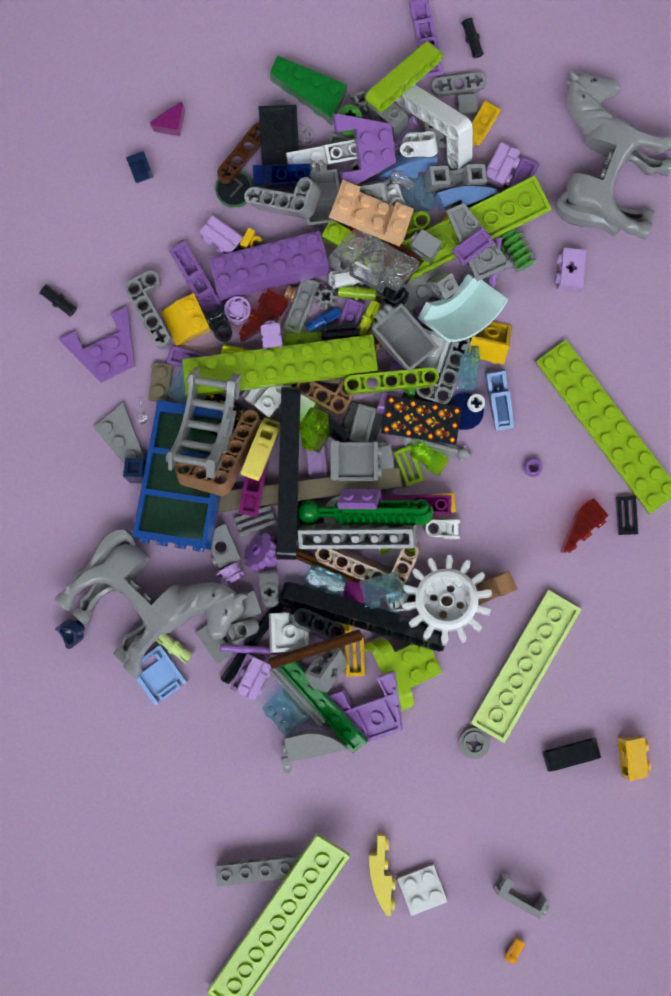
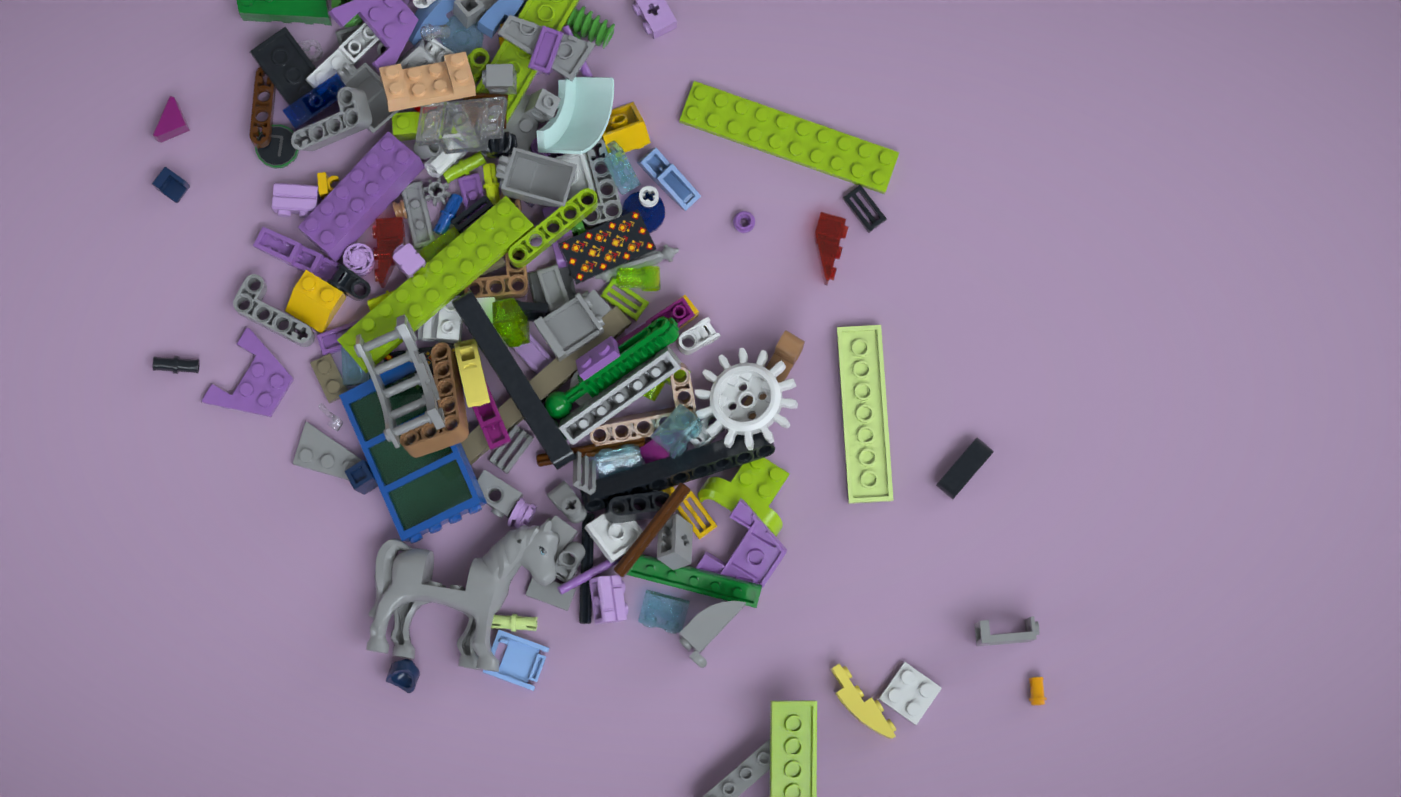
camera: 30 degrees left, 5 degrees down
(261, 552) = (538, 473): medium lavender plant -> none
(285, 683) = (647, 584): light grey axle -> none
(295, 577) = (587, 475): none -> light grey tile
(479, 750) = (875, 523): light grey gear -> none
(633, 757) = (1024, 430): yellow slope -> none

